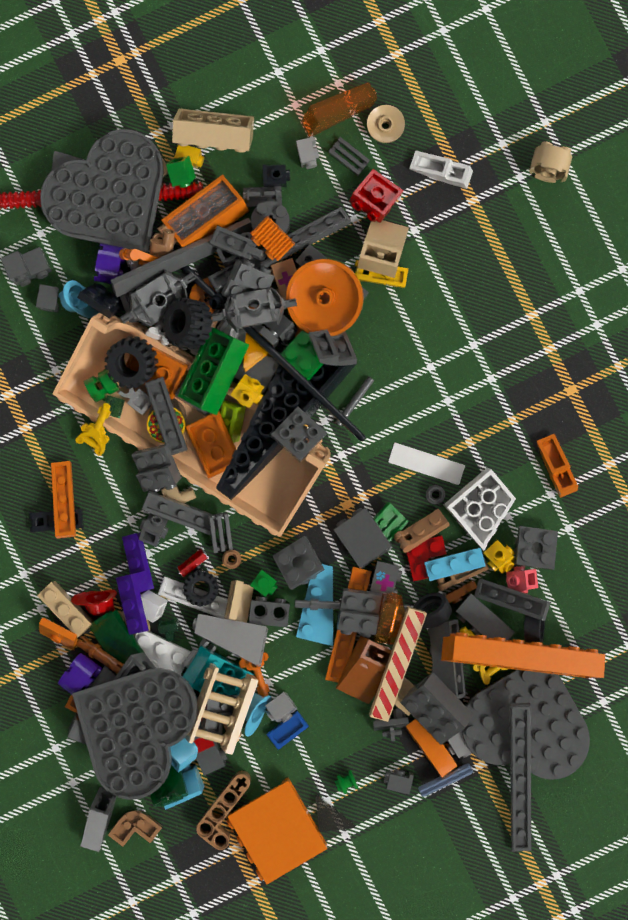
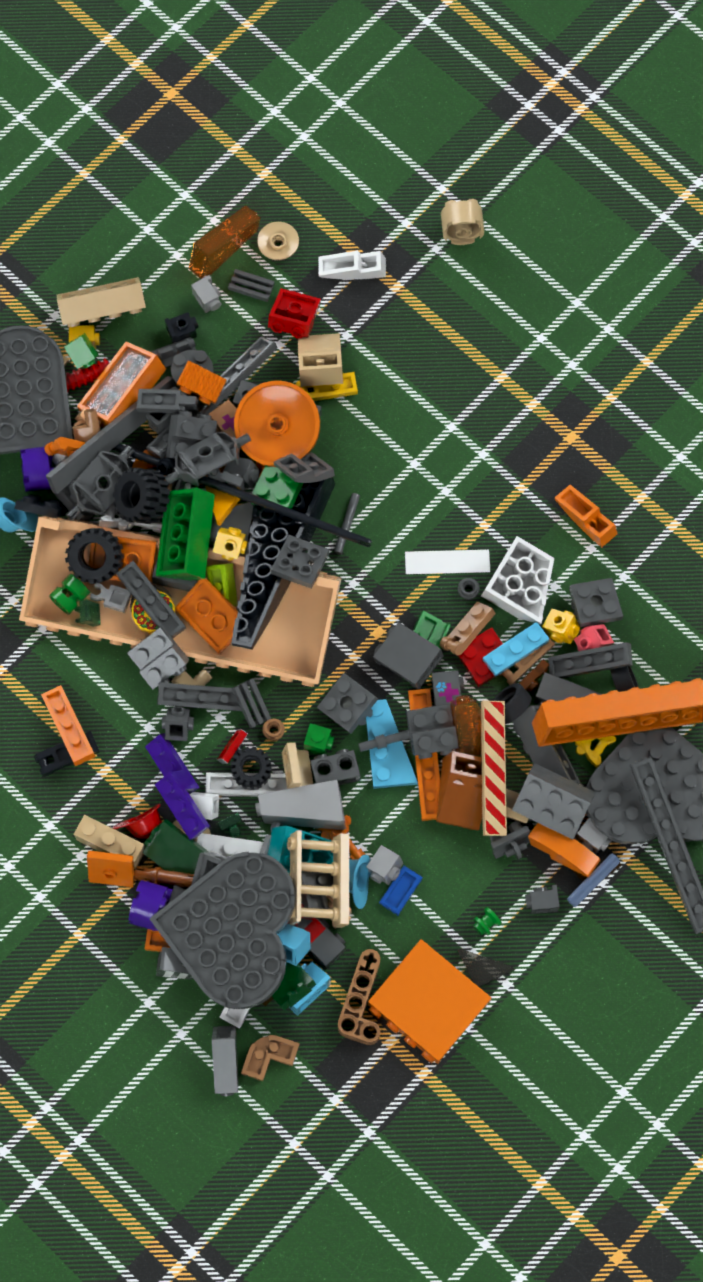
camera: 20 degrees left, 15 degrees down
(96, 431) = (80, 642): yellow piece -> none

